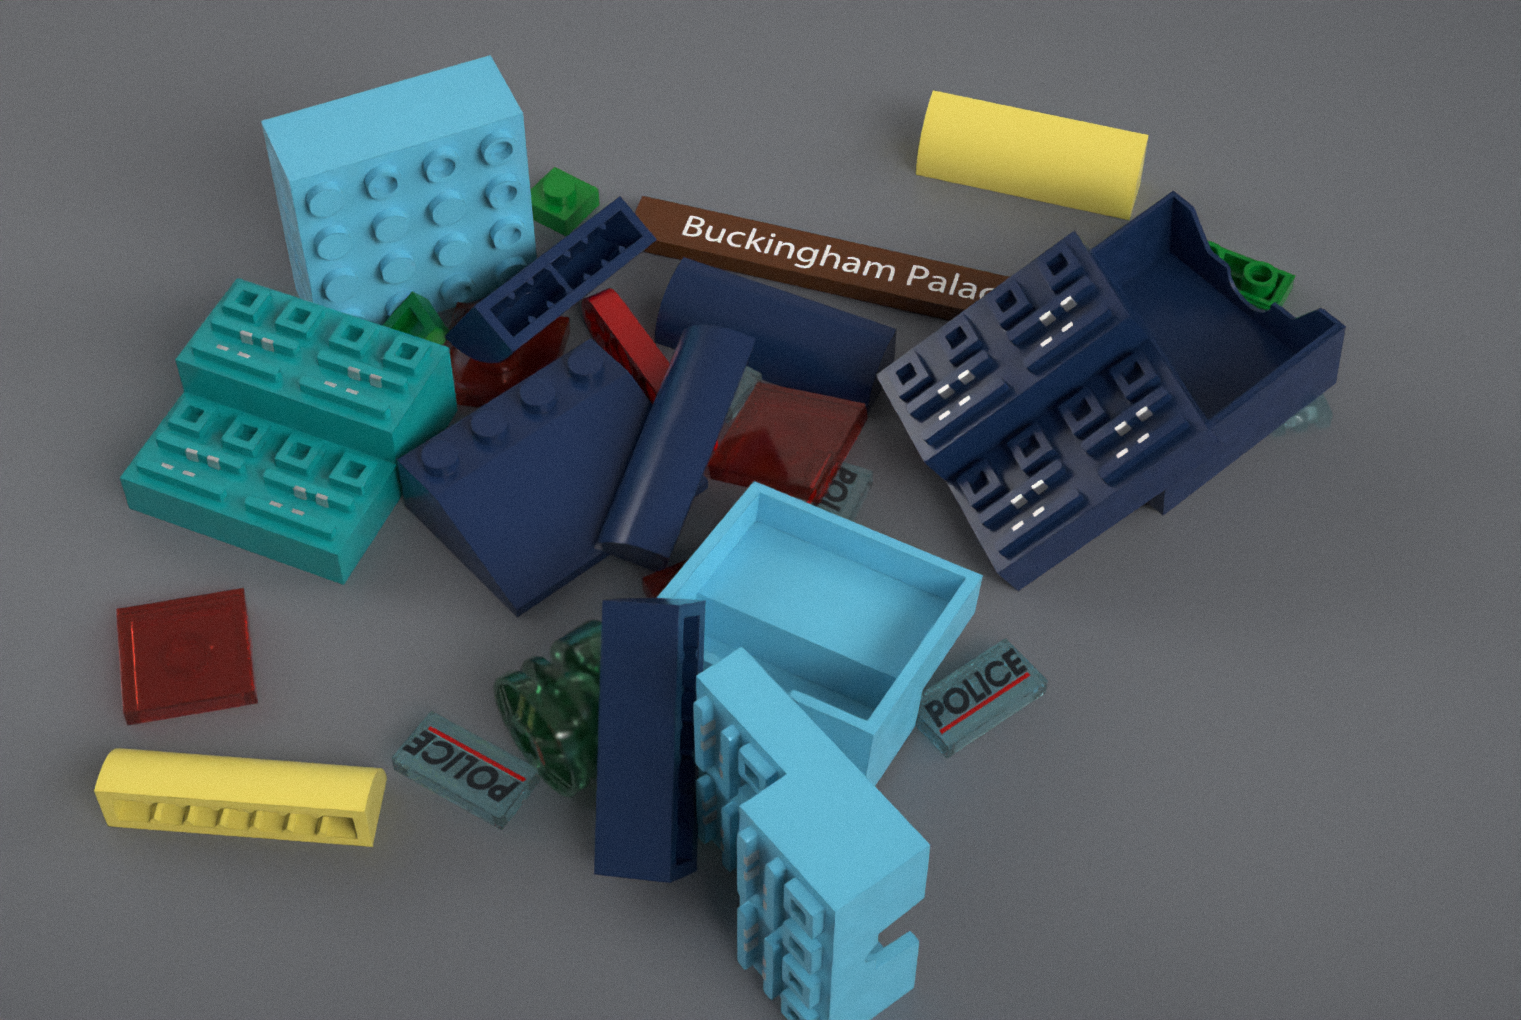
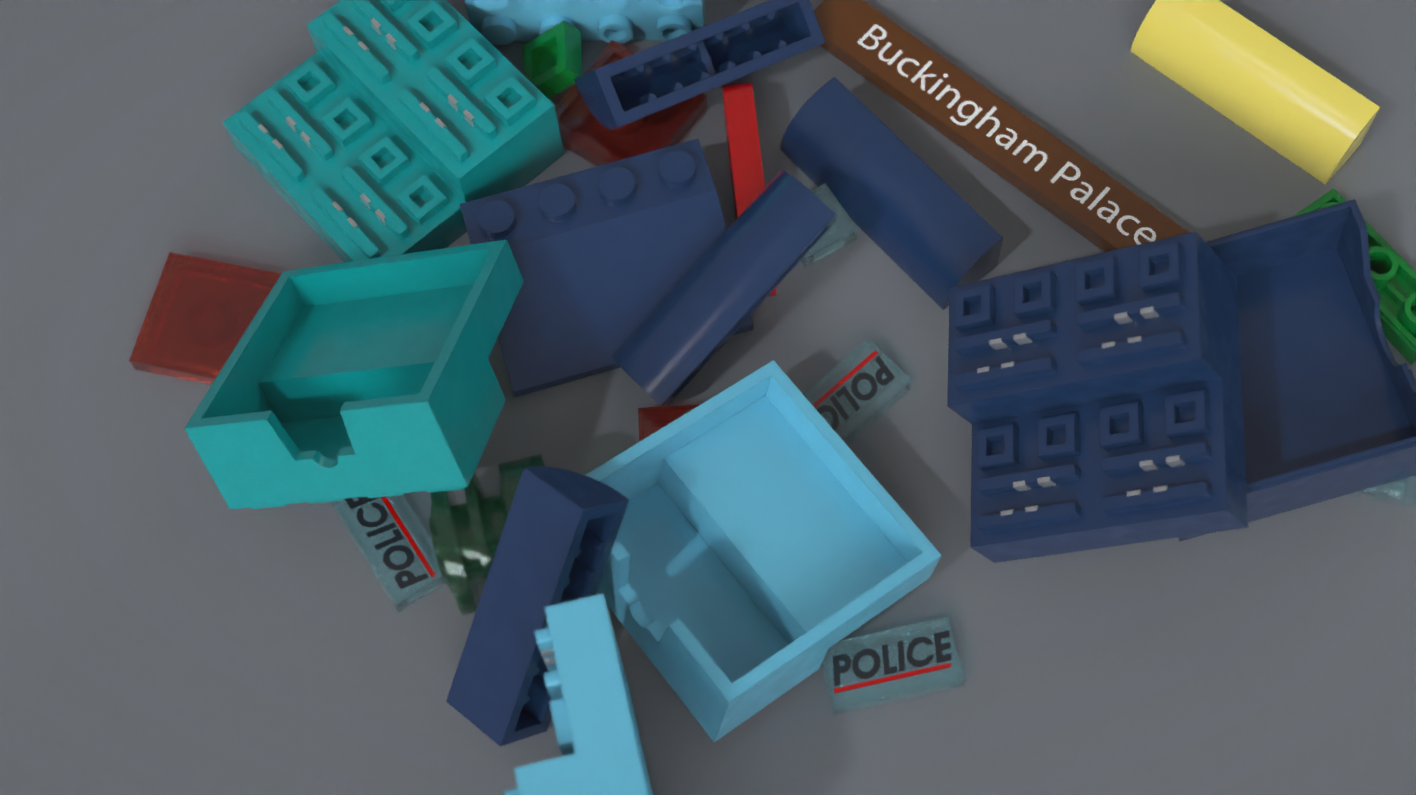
camera: 30 degrees right, 15 degrees up
(241, 796) = (170, 475): light yellow brick -> none
(387, 623) = (361, 380): none -> teal piece
(788, 441) = (846, 315): clear red tile -> none

